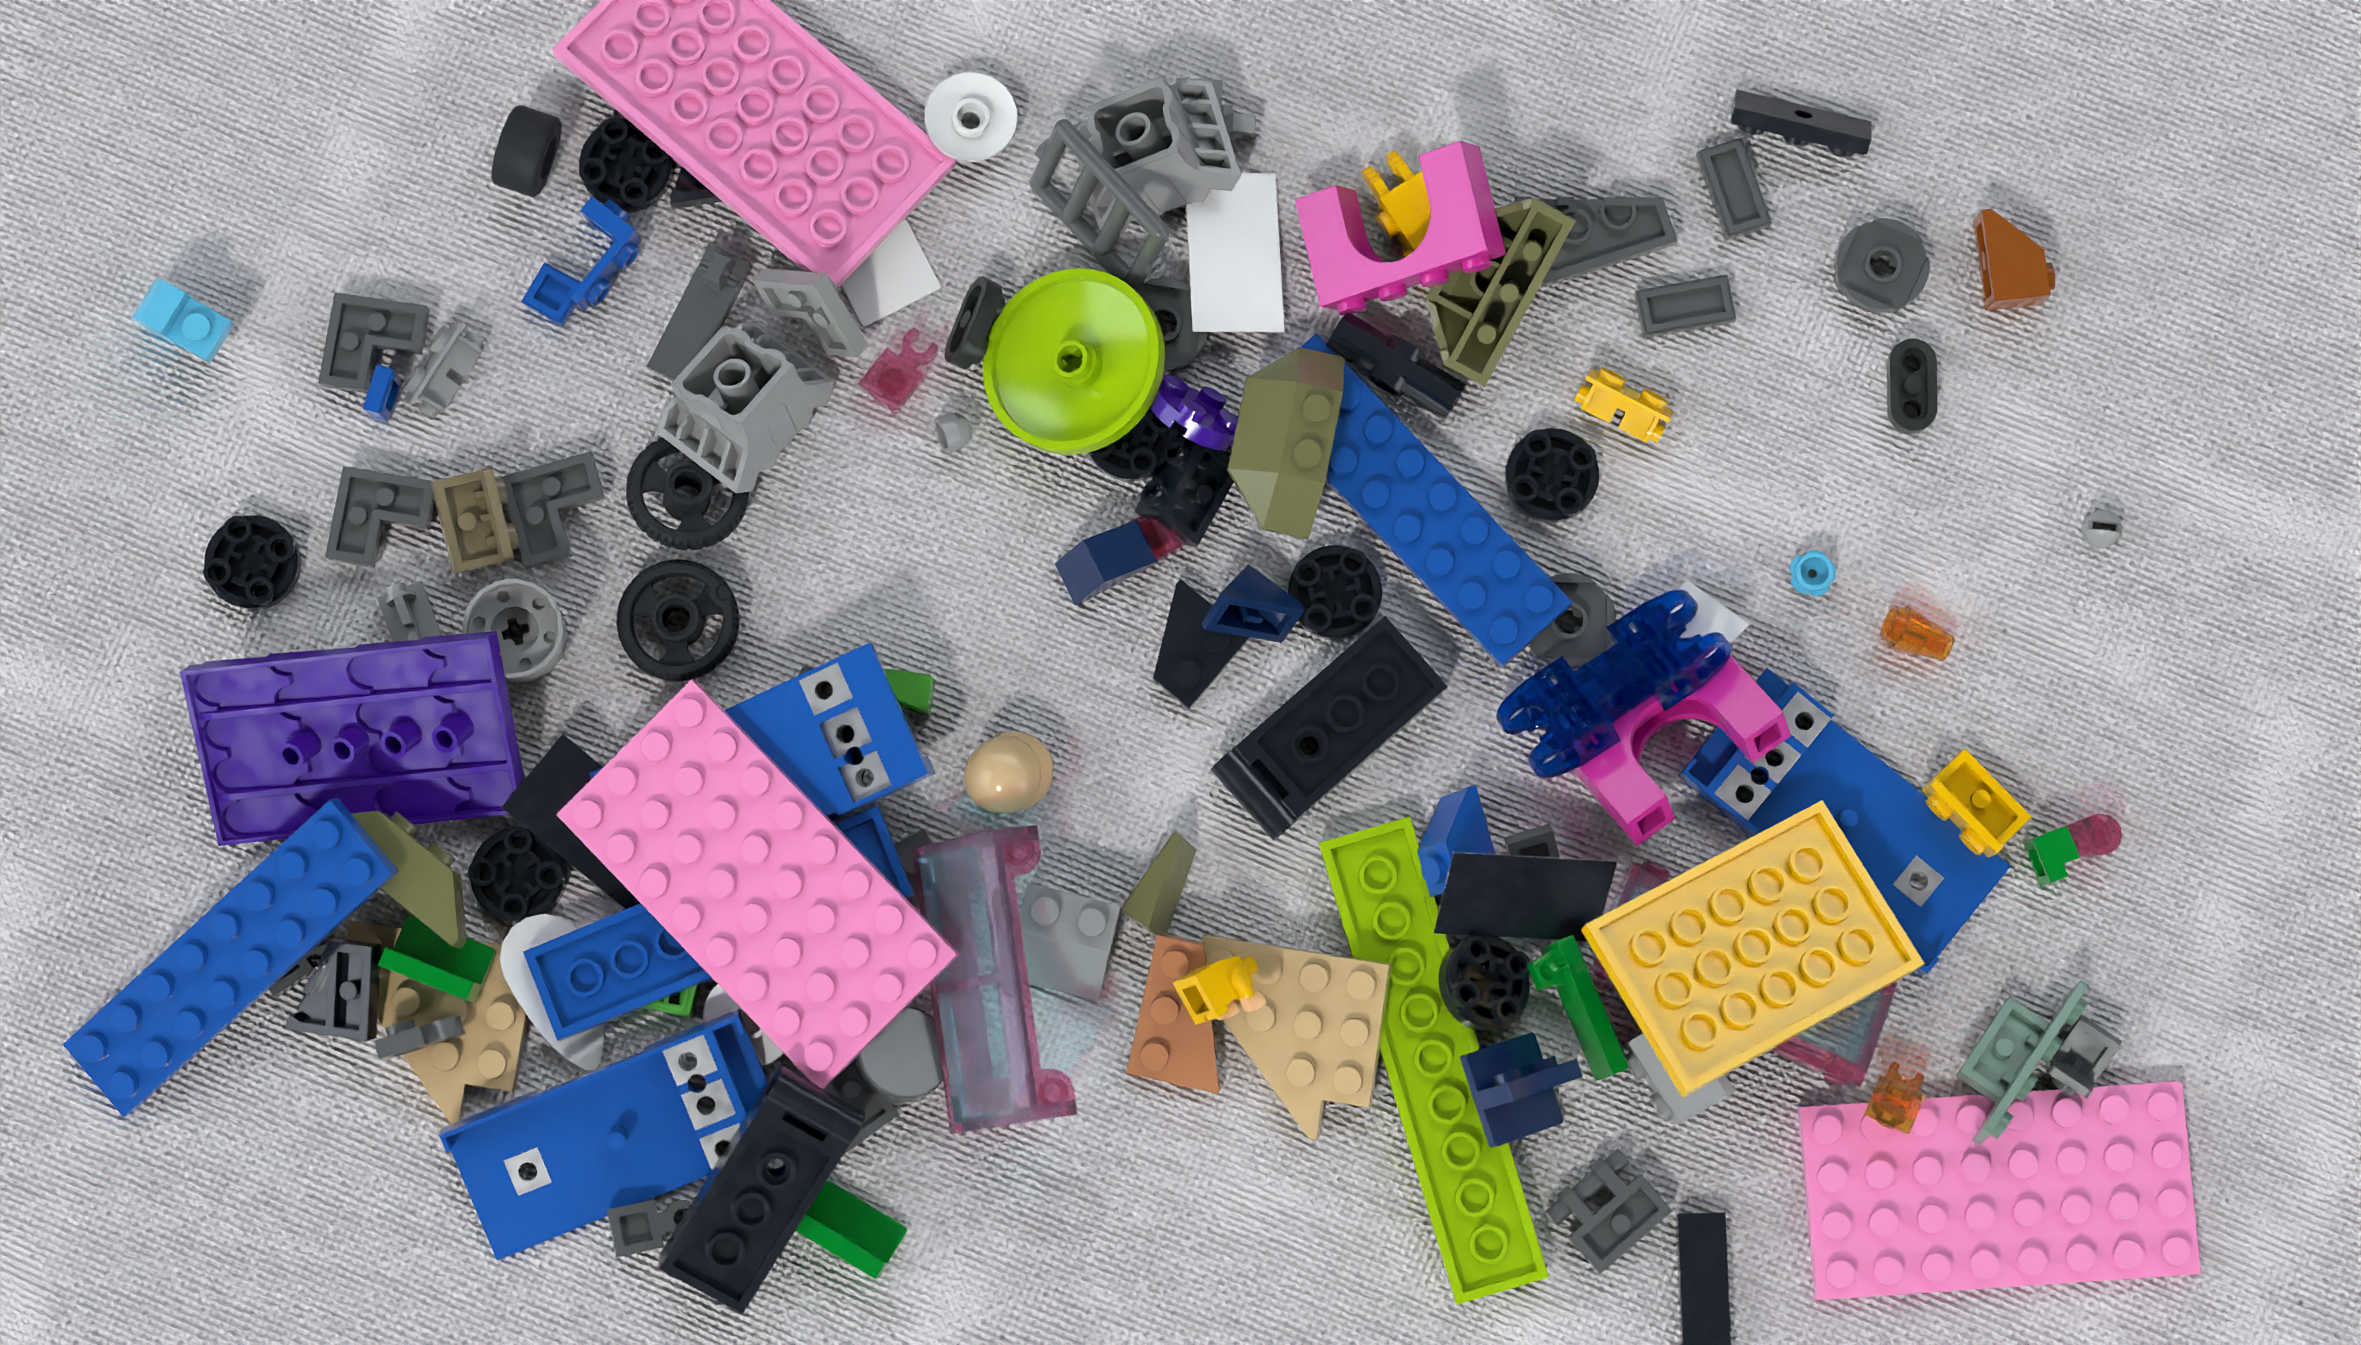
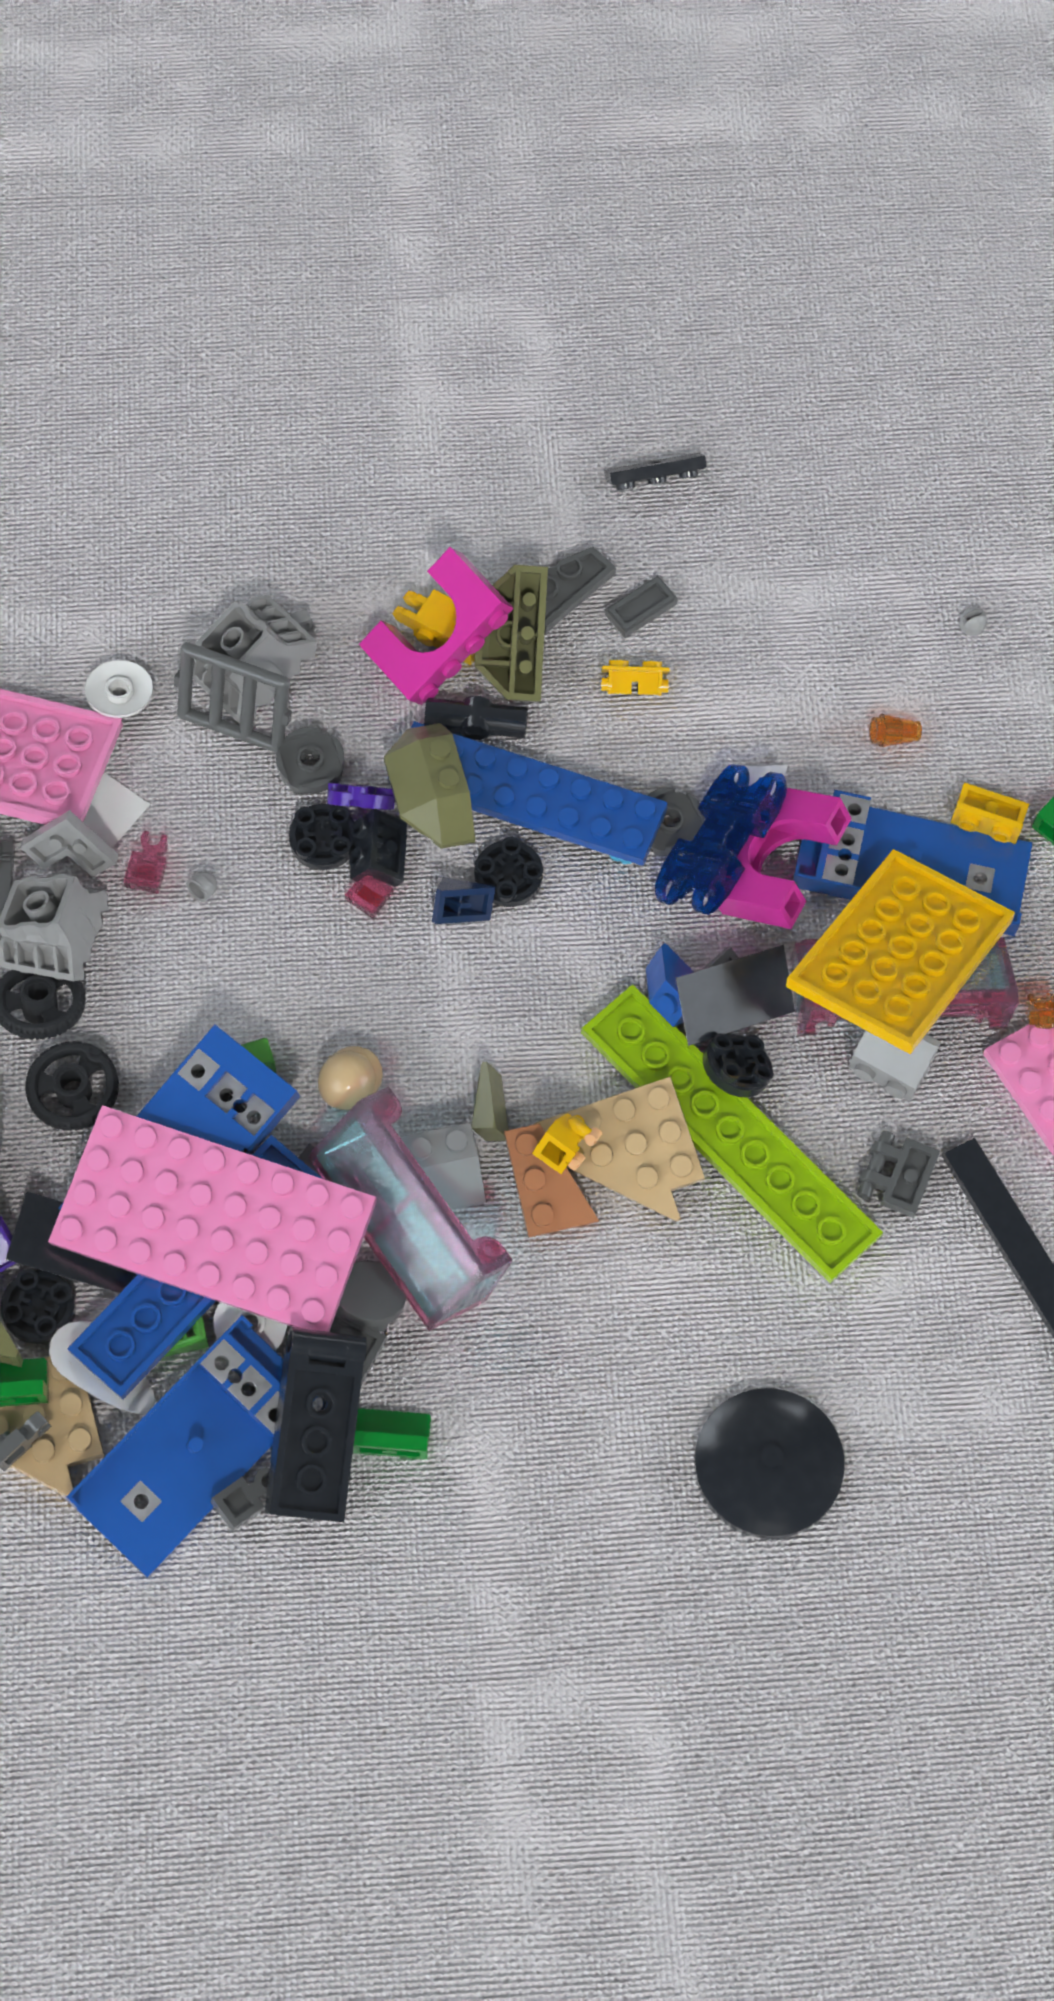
camera: 30 degrees left, 15 degrees down
(978, 310) = (183, 812): pearl dark grey plate -> none
(1073, 361) = (263, 802): lime dish -> none
(1105, 561) = (345, 919): dark blue slope -> none
(1189, 654) = (433, 948): black wing -> none
(1236, 258) = (337, 699): white sticker -> none
(1344, 709) = (552, 939): black hinge -> none
(1515, 1088) = (795, 1119): dark blue bracket -> none
(1551, 475) = (611, 740): black tile -> none
(1565, 969) = (810, 1050): green hinge -> none
(1733, 189) = (634, 527): dark grey tile -> none
(1816, 561) = (812, 717): medium azure plate -> none
(1907, 257) = (745, 545): dark grey plate -> none
(1912, 388) = (810, 591): pearl dark grey plate -> none
(2010, 264) = (829, 493): dark orange slope -> none

